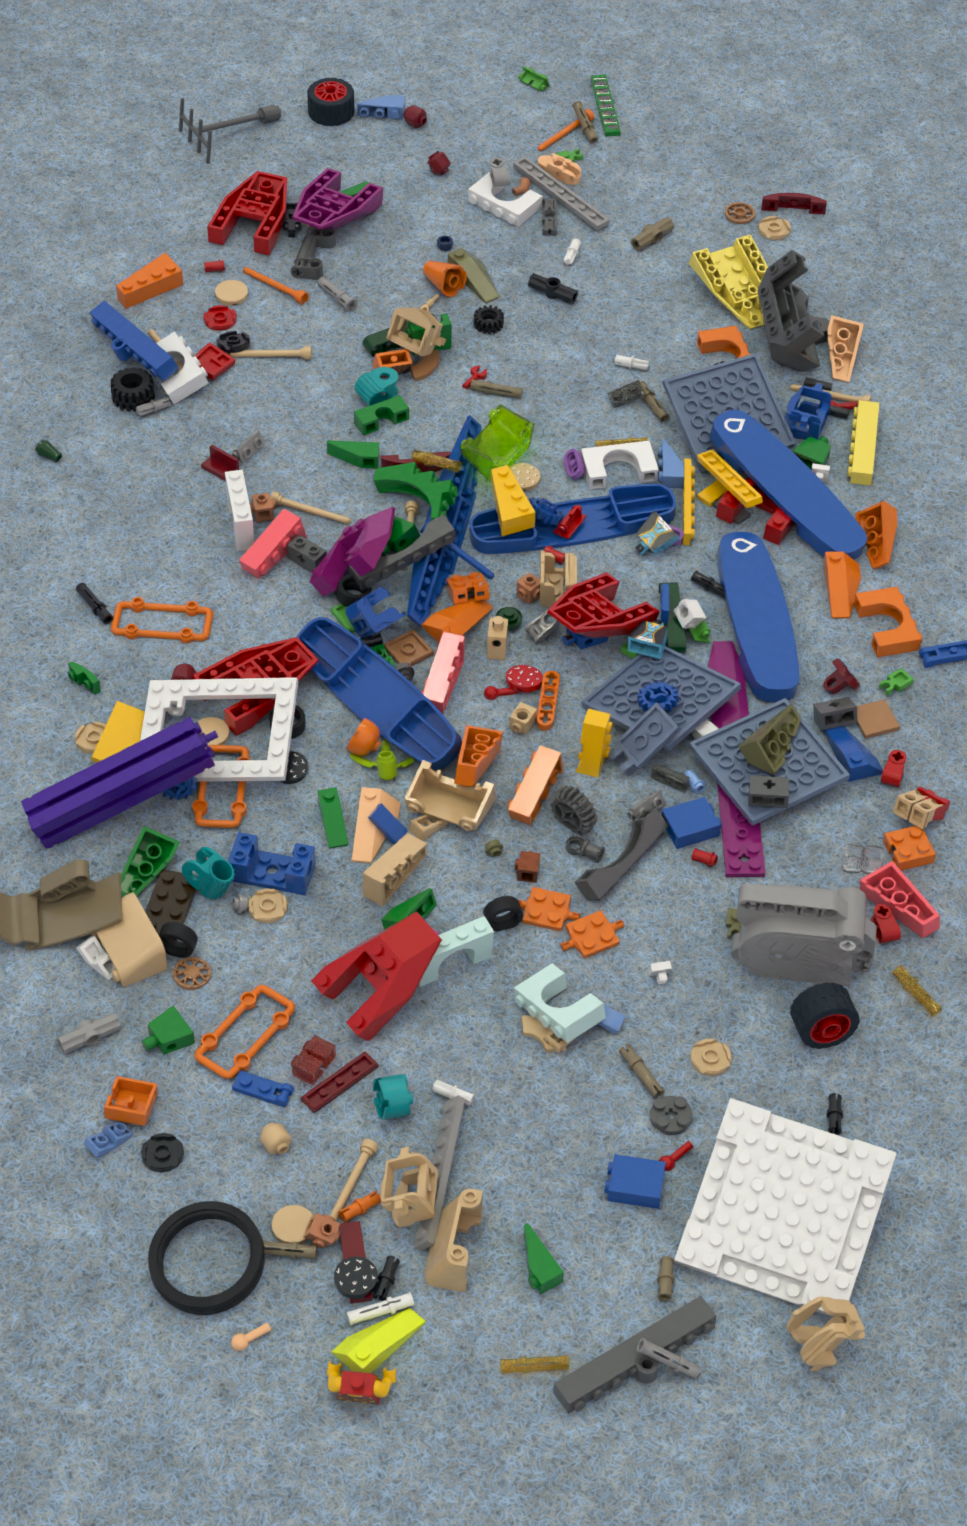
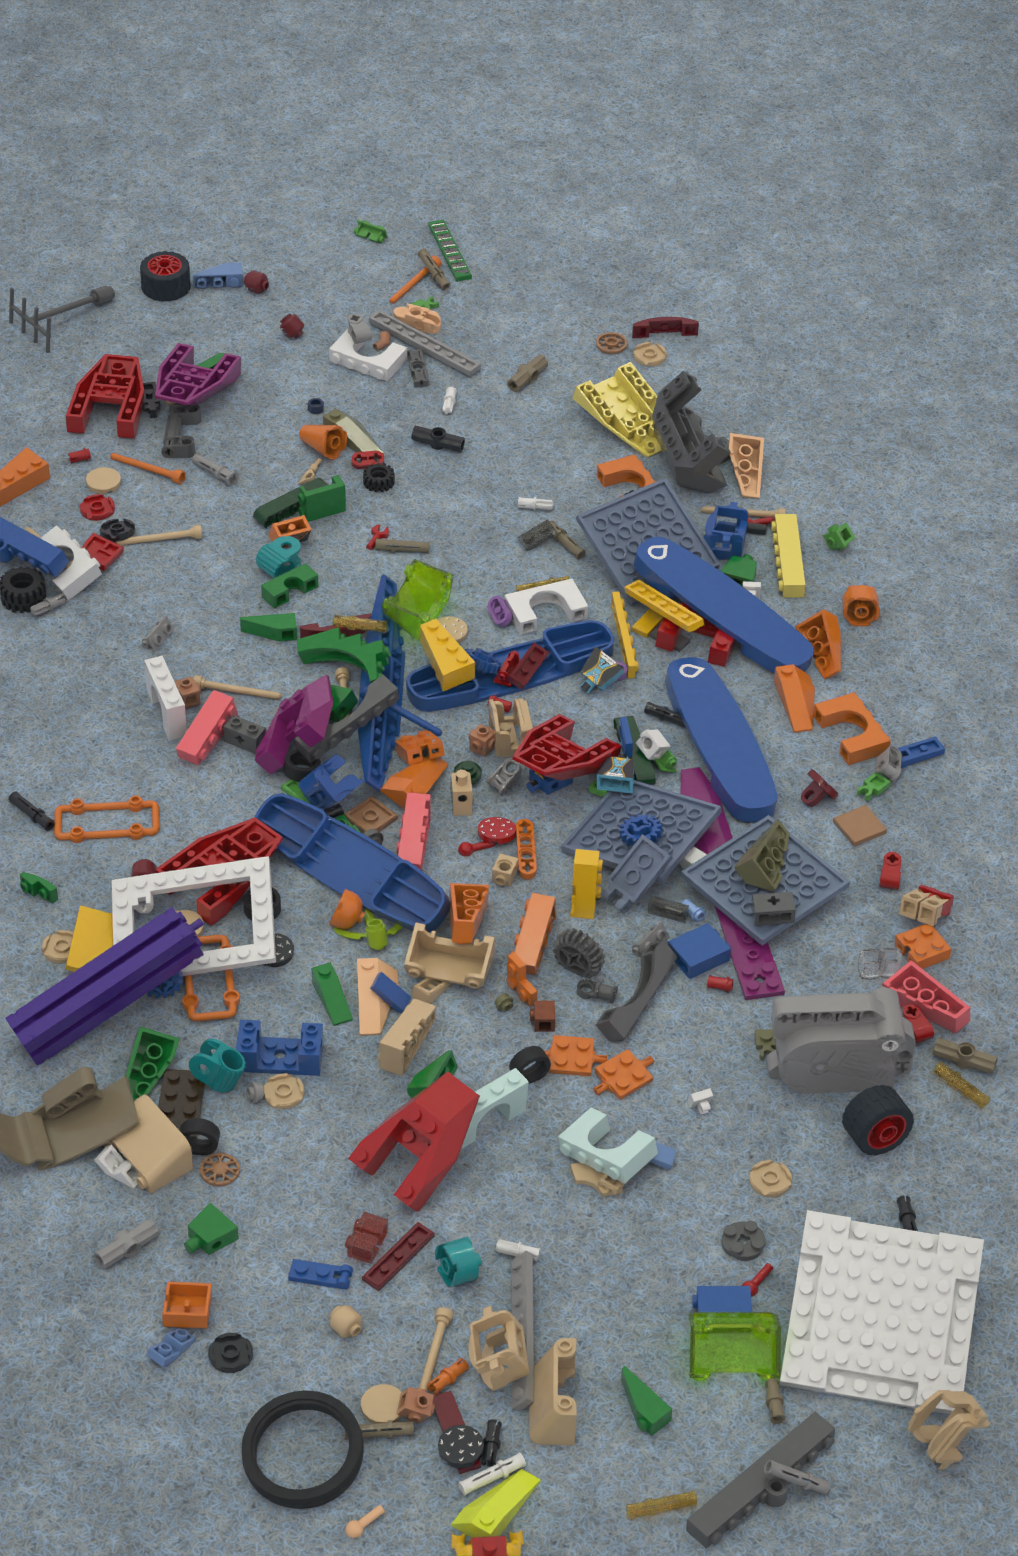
camera: 10 degrees left, 5 degrees down
(220, 462) = (132, 653): dark red panel -> none
(242, 1061) = (292, 1249): orange bar -> none
(421, 318) = (315, 482): tan animal -> none
(425, 366) = (324, 531): medium nougat tile -> none
(481, 300) = (366, 458): none -> red beam
(510, 828) = (517, 979): none -> orange plate
(588, 521) = (528, 666): none -> dark red plate
(636, 1216) = (734, 1343): none -> clear neon green windscreen
(637, 1065) = (697, 1195): dark tan pin -> none
(672, 467) = (600, 602): medium blue slope -> none
(809, 382) = (725, 502): black hinge -> none
(835, 713) = (820, 824): dark grey brick -> none
(852, 754) = (843, 860): blue wedge -> none
(916, 429) = (838, 536): none -> bright green brick
(916, 661) = (889, 763): none -> light grey piece
(922, 500) = (860, 605): none -> orange brick
(926, 962) = (965, 1055): none -> dark tan piece

